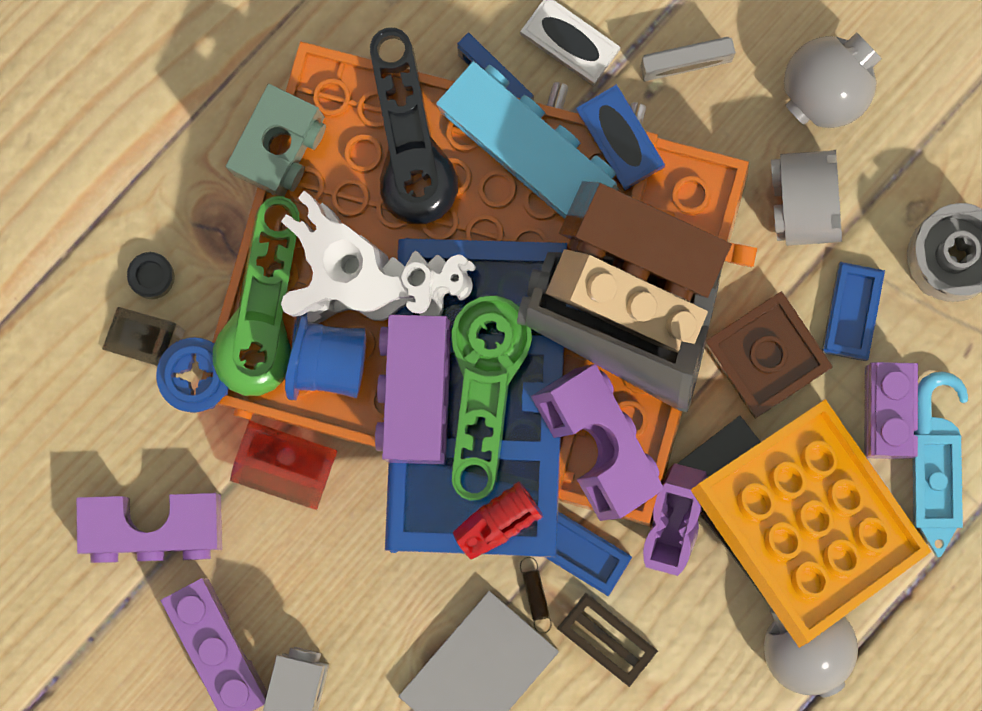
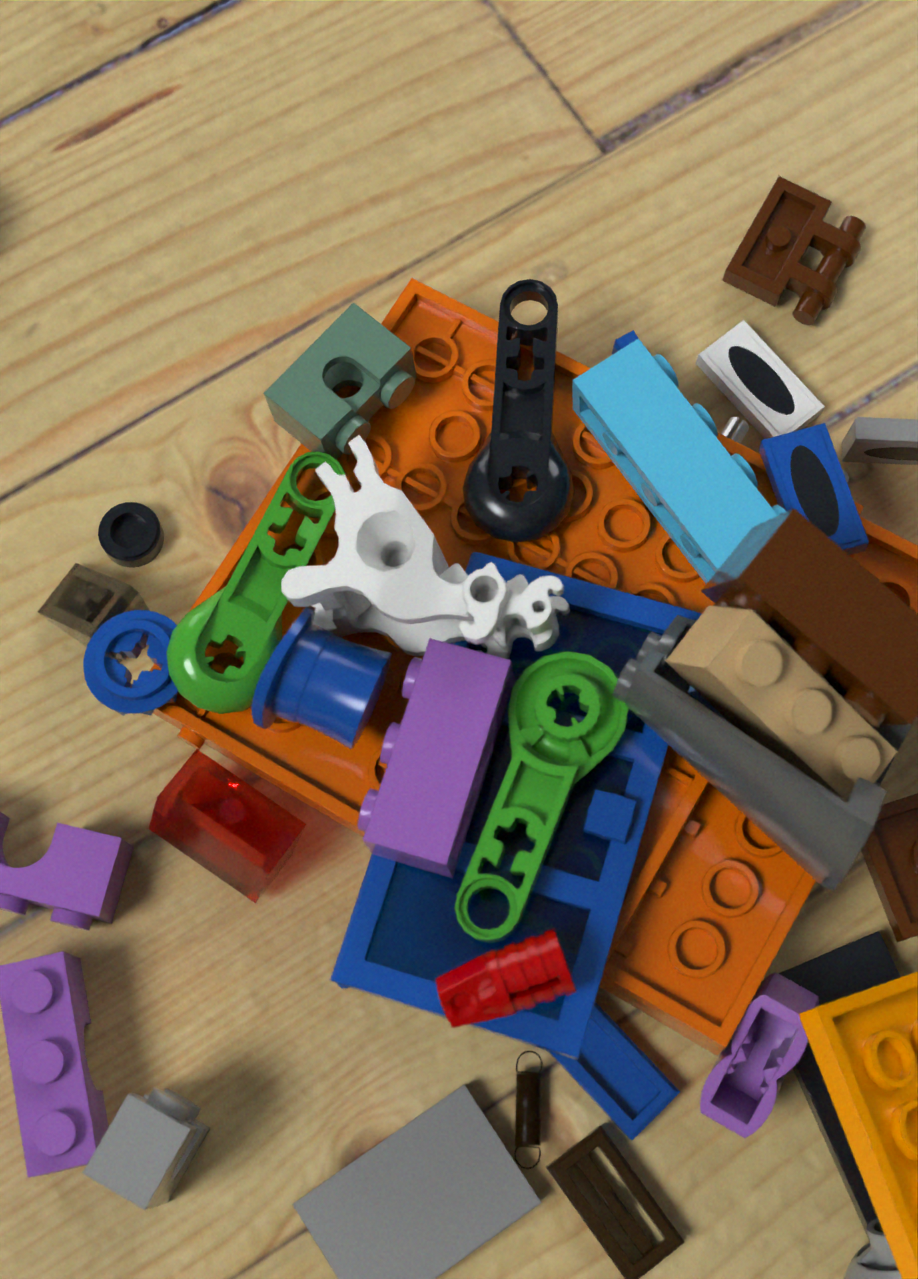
camera: 10 degrees right, 10 degrees down
(623, 471) = (710, 957): medium lavender arch -> none

